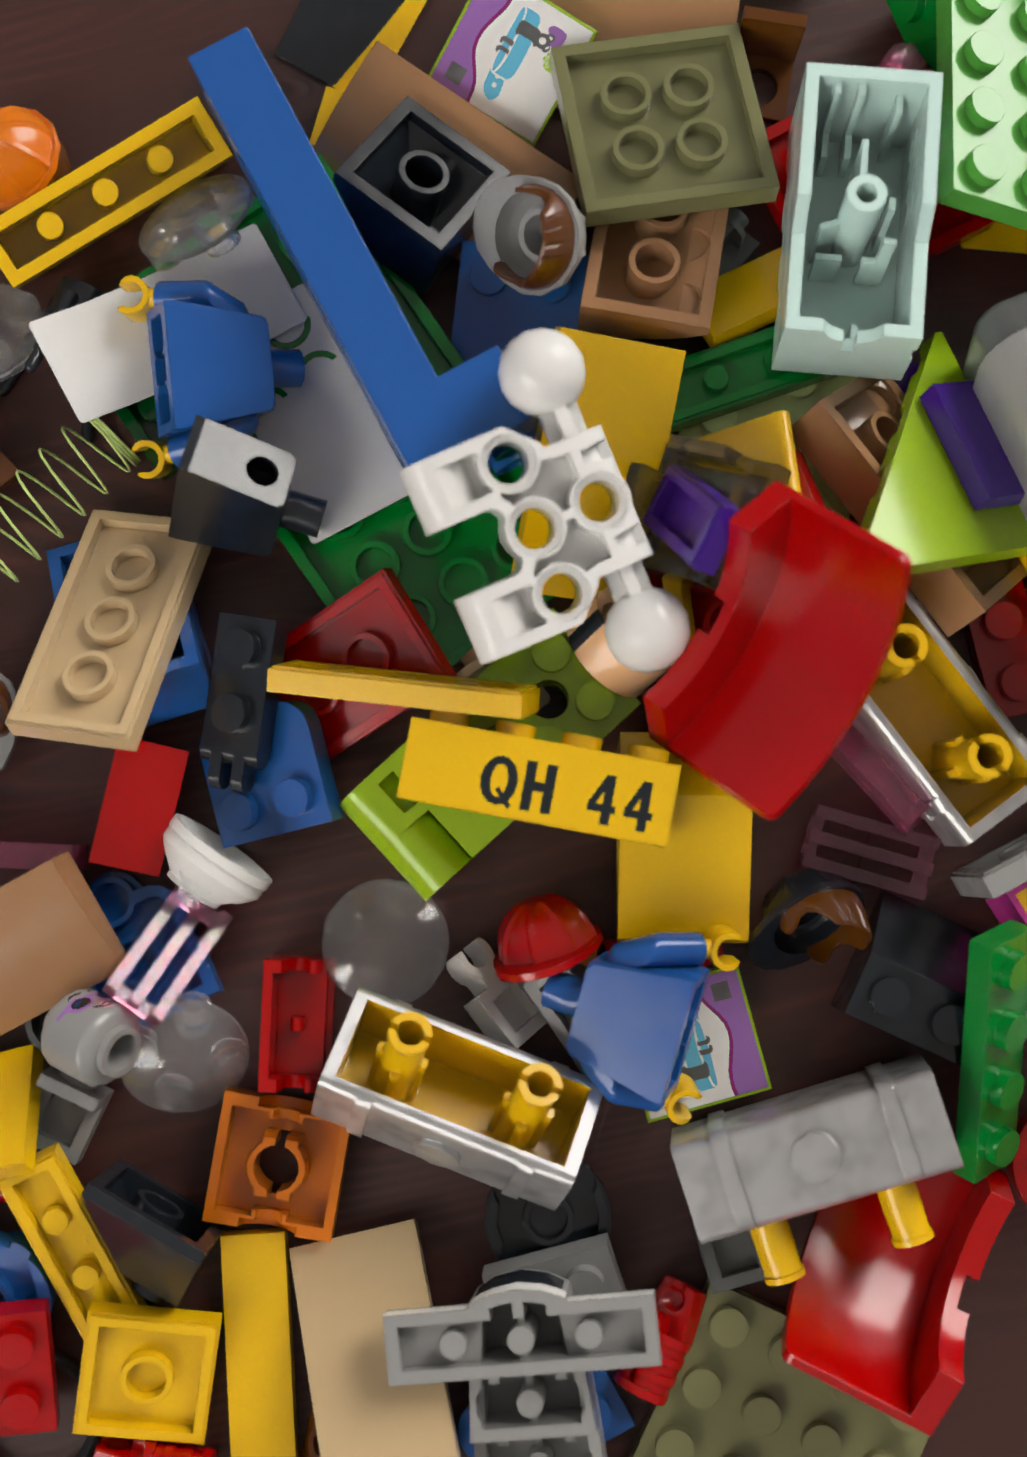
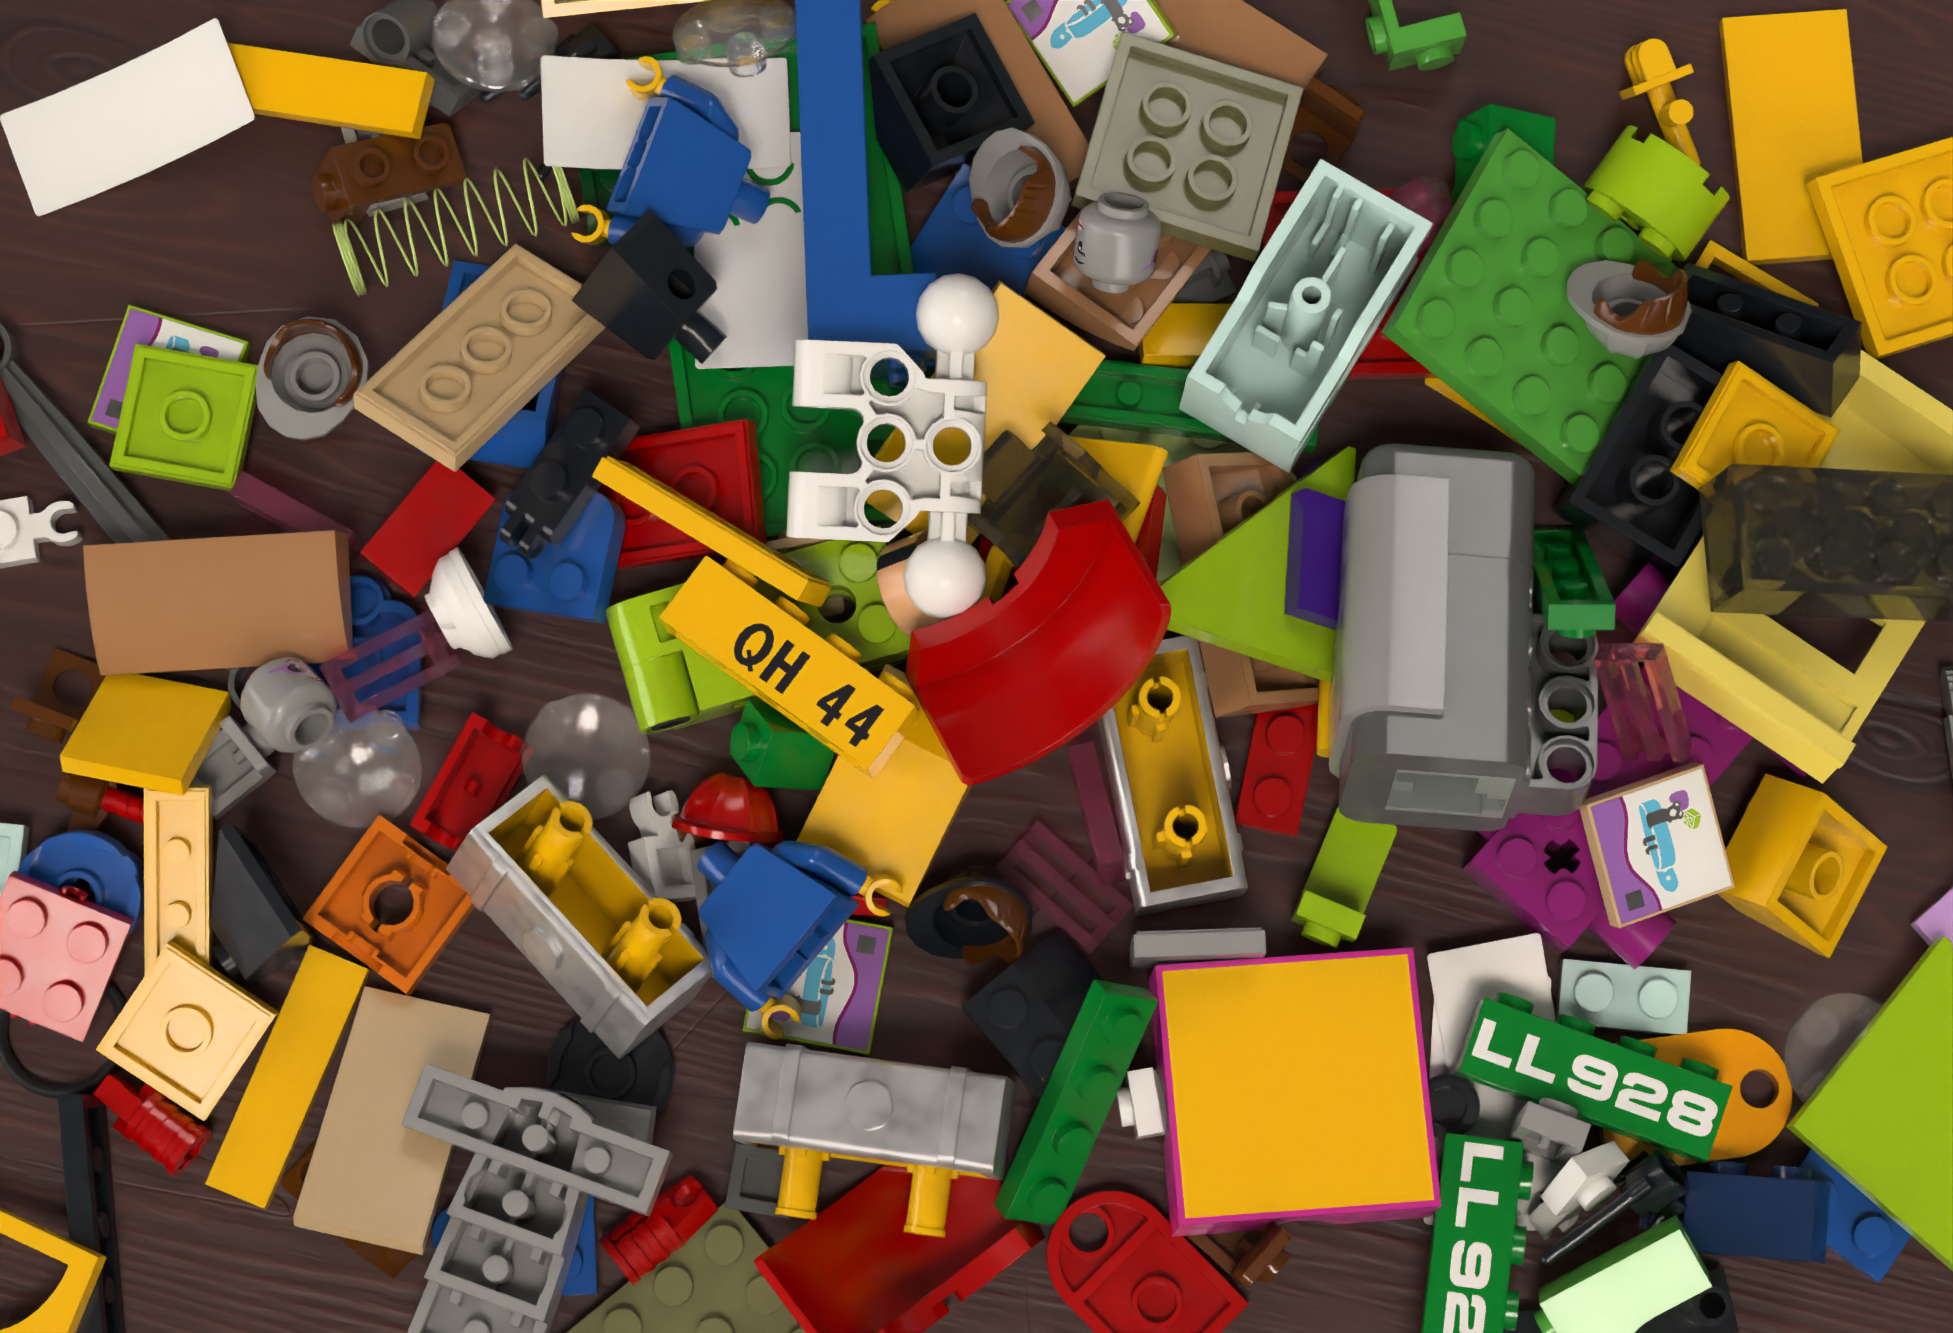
camera: 20 degrees right, 5 degrees down
(558, 860) = (777, 751): none -> green brick
(650, 236) = (1117, 241): none -> light grey head
(691, 518) = (1026, 498): dark purple tile -> none

